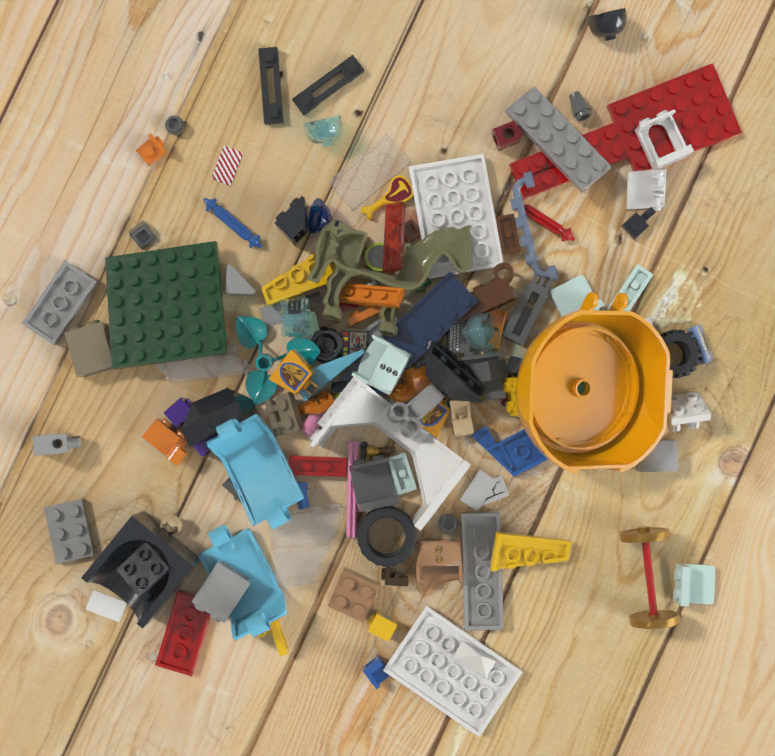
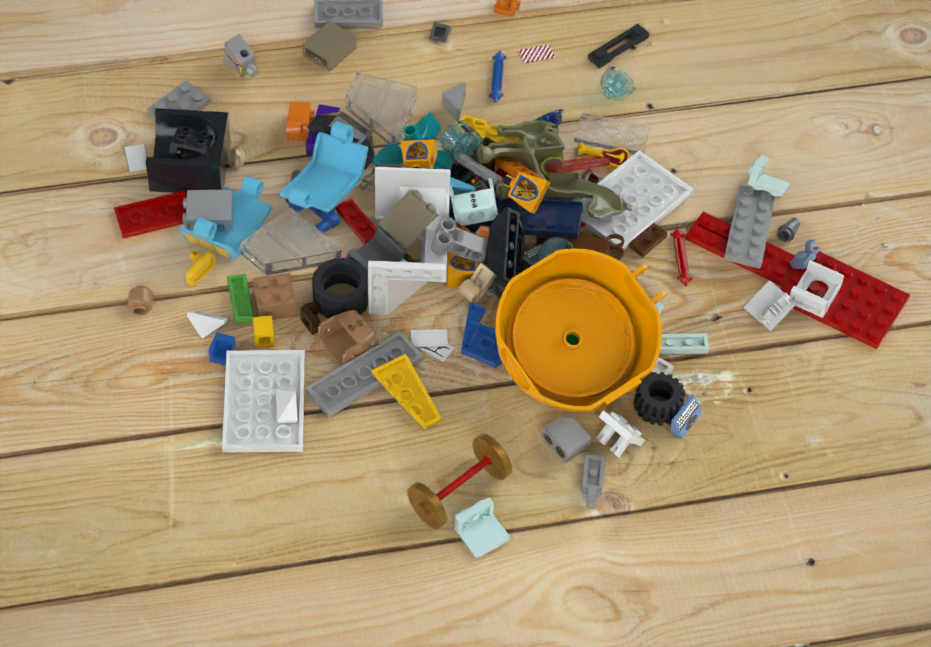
camera: 50 degrees right, 35 degrees down
(165, 305) = (401, 65): dark green plate -> none
(174, 125) = (537, 8): dark grey plate -> none
(277, 707) = (140, 300): none -> medium nougat head
(294, 221) = (533, 102): black slope -> none
(305, 100) = (675, 83): black container -> none
(333, 621) = (240, 299): none -> bright green plate
(336, 664) = (206, 323): none -> white slope
(341, 327) = (478, 169): none -> light grey axle
(362, 435) = (408, 218): none -> dark tan brick
(410, 315) = (526, 190): none -> torso
(448, 523) = (384, 330): dark grey plate -> none
(502, 142) = (721, 196): dark red brick -> none
(521, 84) = (760, 181): none -> light aqua bracket
(522, 222) = (666, 240): sand blue bar -> none
(608, 24) = (867, 206): black cylinder -> none
(624, 122) = (802, 258): none -> sand blue plate
(637, 224) = (737, 319): black plate -> none
(706, 461) = (593, 478): none -> light grey hinge

